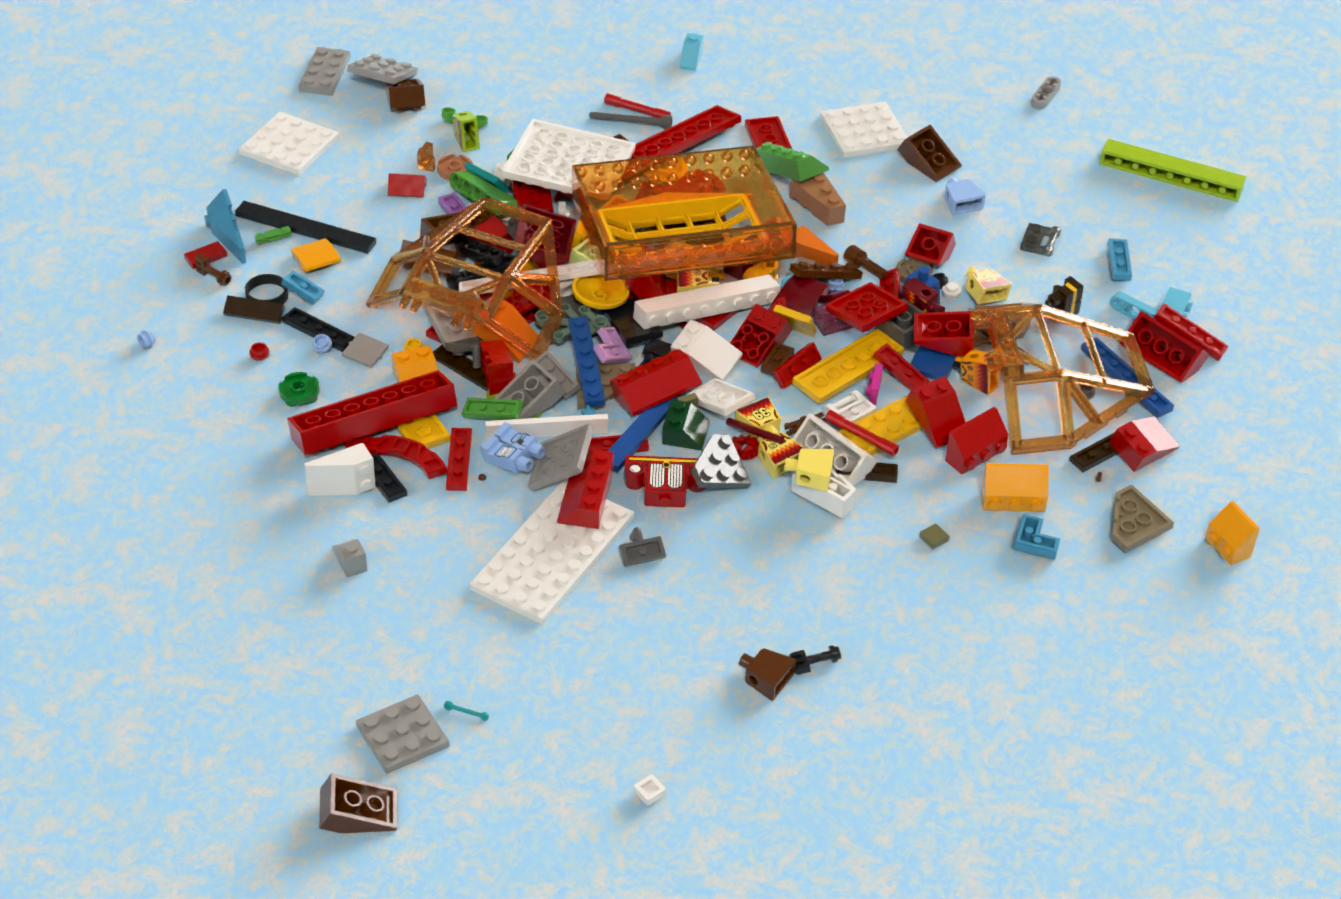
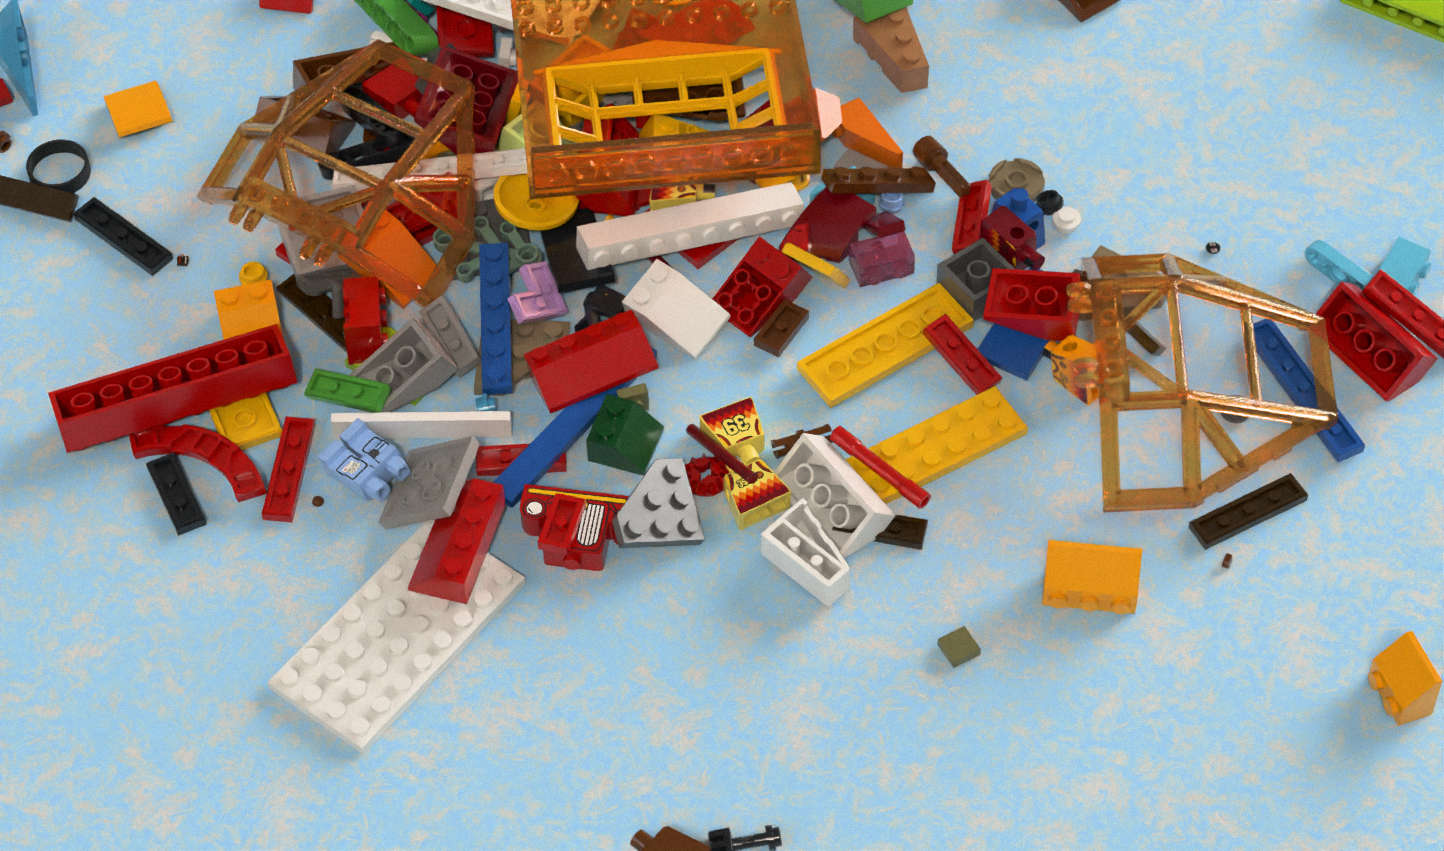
camera: 10 degrees right, 10 degrees up
(259, 351) = (32, 270): red plate -> none
(272, 235) = (82, 70): bright green axle -> none
(293, 396) = (82, 350): green plate -> none
(302, 287) = (109, 165): dark azure plate -> none
(306, 226) = (132, 58): black tile -> none
(321, 343) = (122, 262): light blue plate -> none
(341, 472) = (112, 488): white slope -> none
(351, 557) = (106, 625): light grey slope -> none
(365, 350) = (184, 275): light grey piece -> none
(451, 203) = (349, 31): medium lavender plate -> none
(642, 549) = (523, 643): dark grey plate -> none
(657, 474) = (561, 523): none -> red plate
(722, 396) = (684, 390): white tile -> none
(796, 364) = (808, 339): red tile -> none
(812, 468) = (789, 531): light yellow torso -> none
(855, 411) = (877, 426): white plate -> none
(866, 307) = (923, 253): red plate -> none
(875, 379) = (920, 370): dark pink plate -> none
(931, 245) = (1046, 142): red slope -> none
(936, 409) = (1001, 438): red slope -> none
(963, 196) = (1115, 53): light blue torso -> none
(976, 441) = (1049, 492): red slope -> none
(987, 285) = (1119, 217): light yellow torso -> none
(1032, 542) = (1102, 668): dark azure brick -> none
(1034, 237) = (1212, 130): clear smoke plate -> none
(1067, 296) = (1233, 251): dark brown hips -> none
(1119, 259) = (1334, 178): dark azure plate -> none
(1136, 519) = (1268, 640): dark tan plate -> none
(1142, 442) = (1305, 507): red slope -> none

